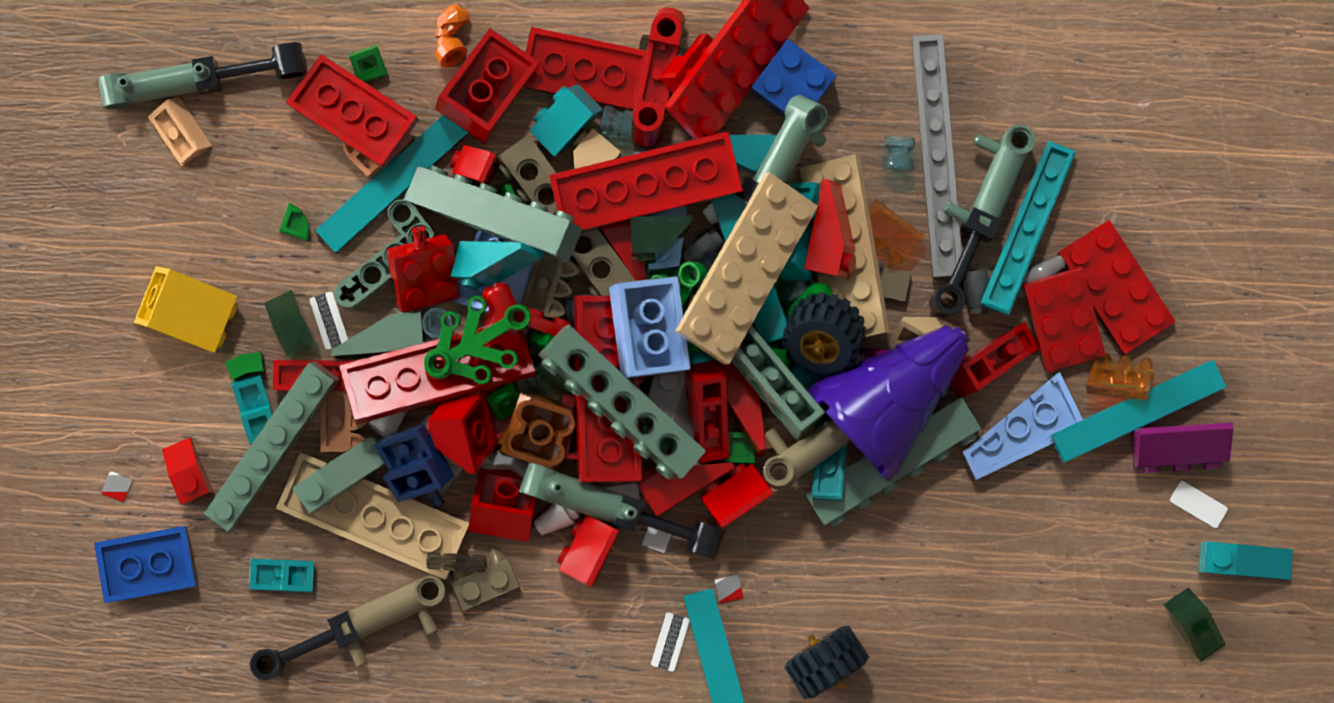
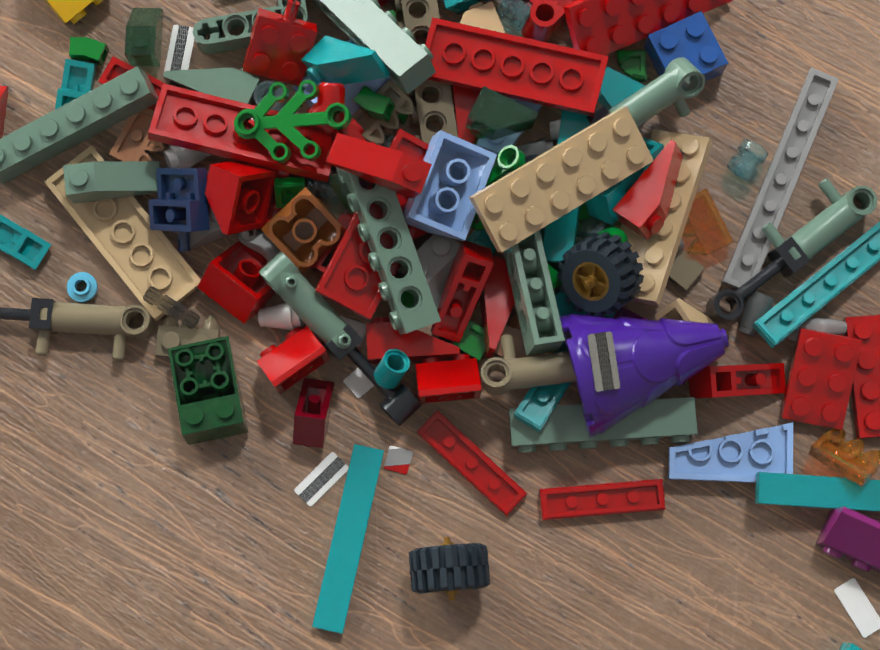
camera: 25 degrees right, 5 degrees down
(373, 585) = (90, 291): none -> medium azure plate
(528, 618) = (207, 390): none -> dark green slope
(539, 282) = (374, 104): none -> green piece
(581, 345) = (379, 165): none -> red slope
(632, 588) = (313, 413): none -> dark red slope
(682, 523) = (391, 368): none -> teal beam
(750, 115) = (633, 63): none -> green tile
(795, 557) = (471, 463): none -> red tile
(869, 415) = (603, 361): none -> clear smoke sticker
(927, 528) = (602, 499): none -> red tile

